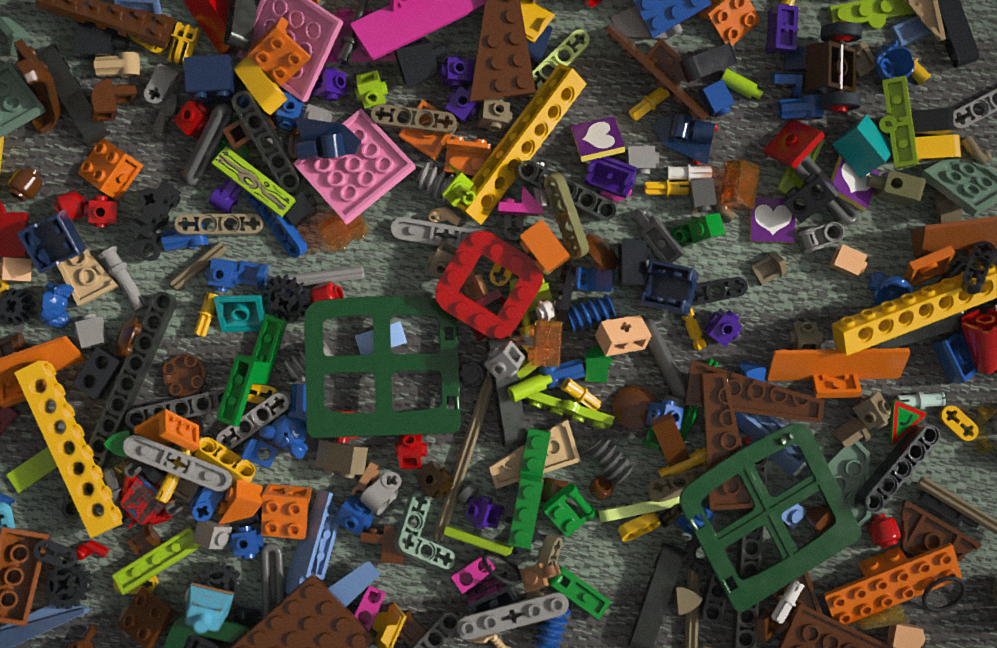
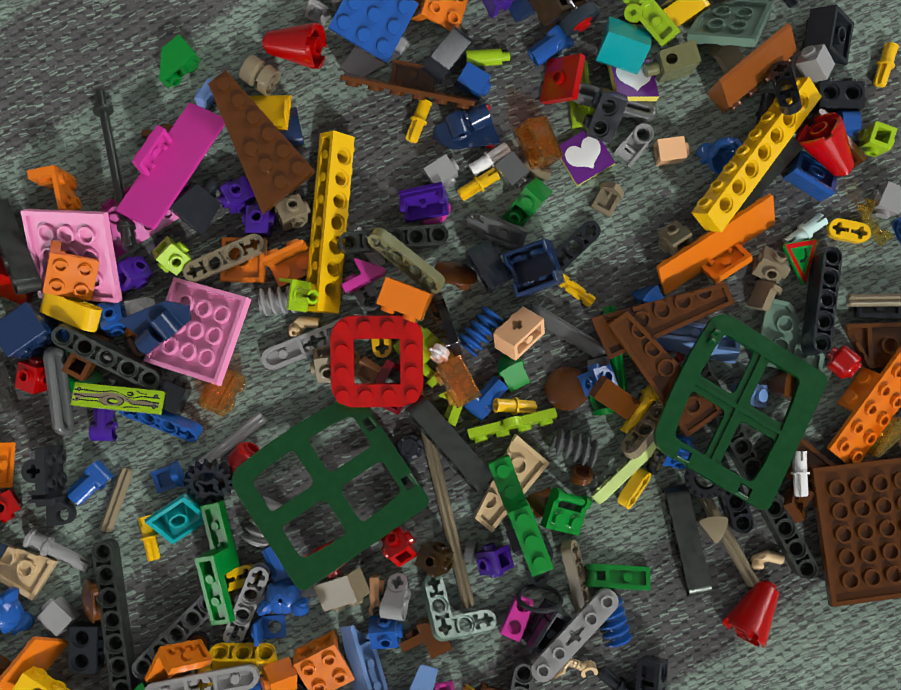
camera: 30 degrees left, 0 degrees up
(184, 375) = (162, 602): reddish brown dish -> none
(215, 271) = (141, 495): blue brick -> none
(218, 220) = (110, 452): dark tan beam -> none
(366, 343) = (301, 475): light blue slope -> none
(478, 540) = (503, 587): lime tile -> none
(504, 360) = (430, 419): light grey brick -> none
(528, 387) = (466, 428): lime cylinder -> none
(536, 576) = (573, 586): medium nougat plate -> none
(553, 60) = (313, 134): yellowish green beam -> none
(594, 280) = (465, 300): blue bracket -> none
(598, 139) = (393, 178): tile -> none
(723, 326) = (600, 272): dark purple brick -> none
(788, 78) = (528, 24): blue tile -> none
(929, 266) = (742, 112): orange plate -> none

